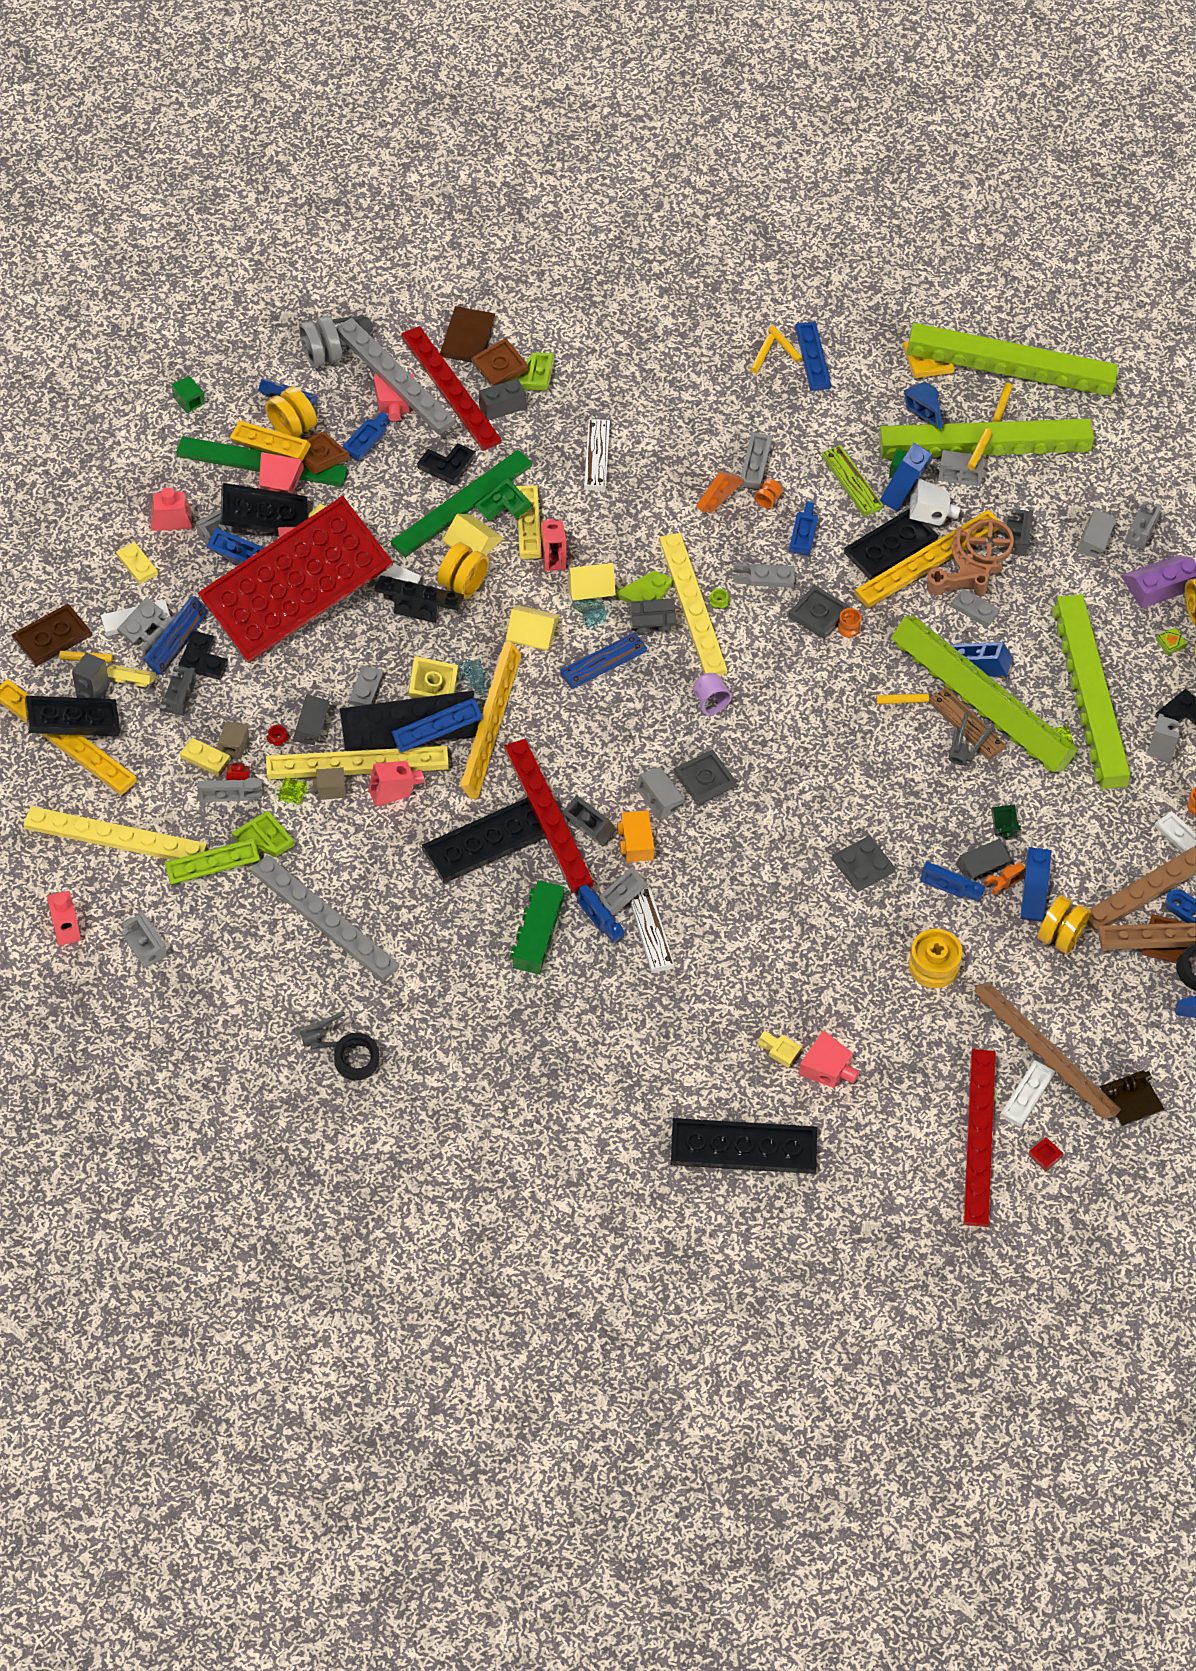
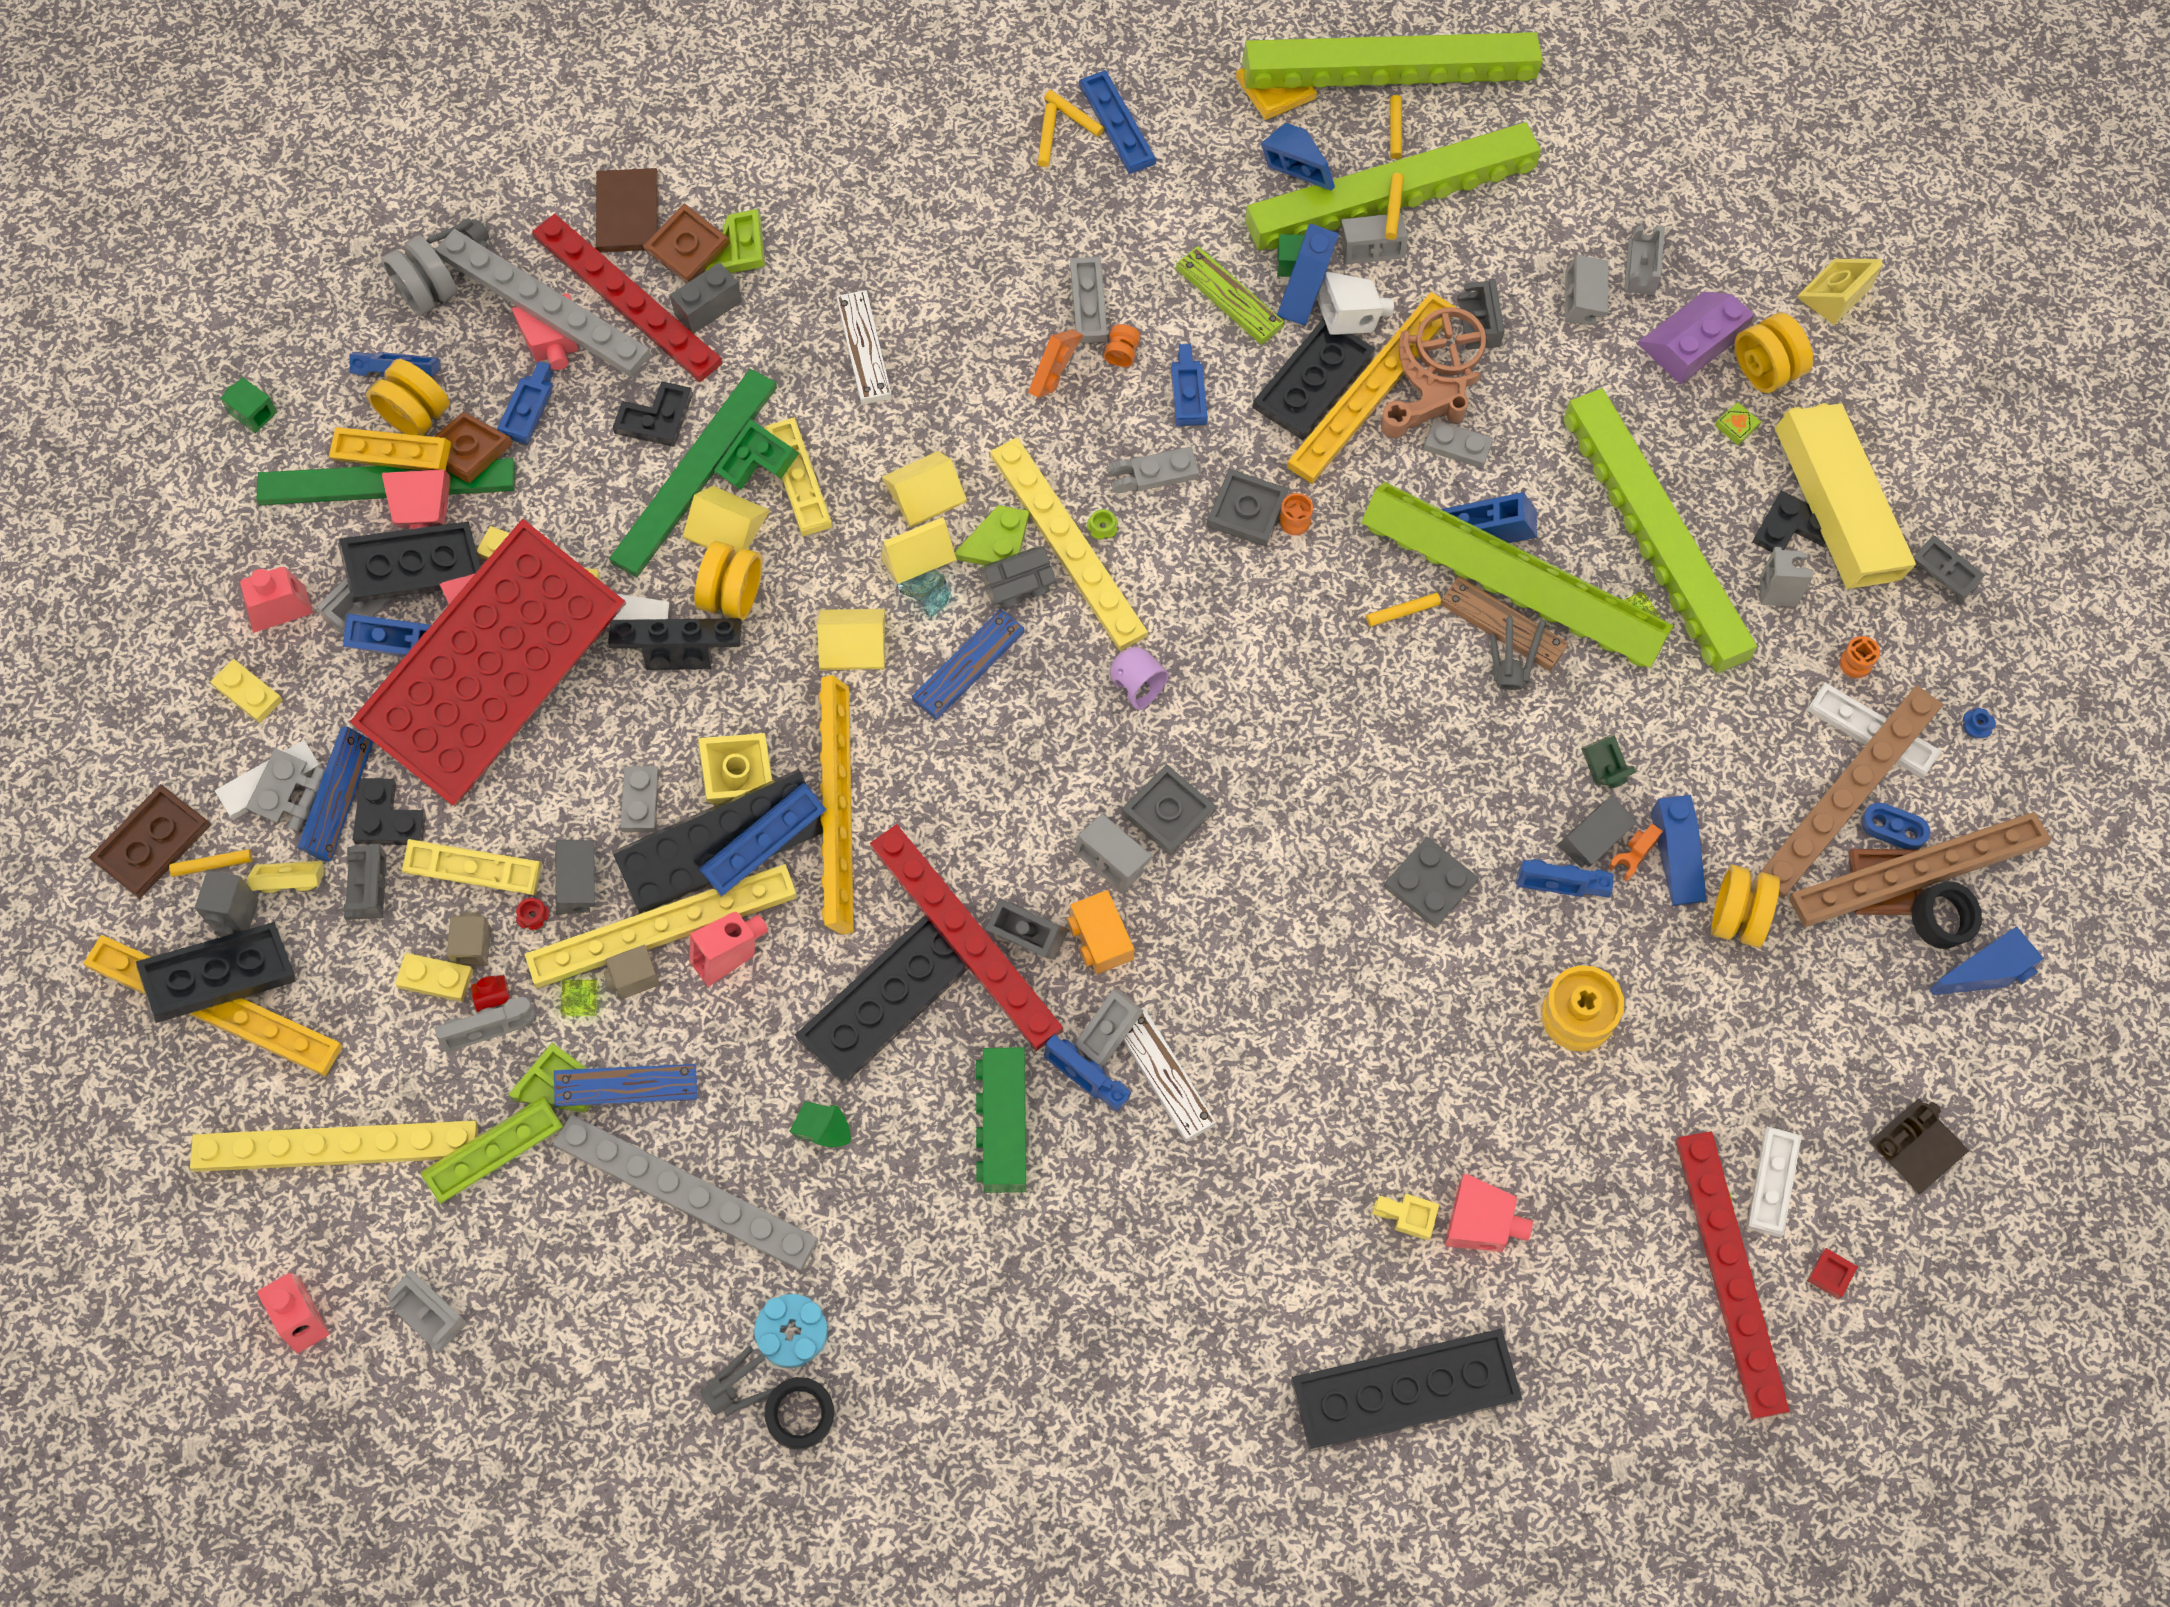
camera: 15 degrees left, 10 degrees up
(248, 698) = (472, 867): none -> light yellow plate
(306, 845) = (625, 1085): none -> blue tile
(371, 1022) = (803, 1347): none -> medium azure plate
(422, 900) = (821, 1125): none -> green tile
(474, 671) = (791, 734): clear light blue bracket -> none
(553, 535) = (840, 492): coral torso -> none
(610, 547) = (925, 488): none -> light yellow slope
(1046, 1049) = (1790, 1113): medium nougat plate -> none

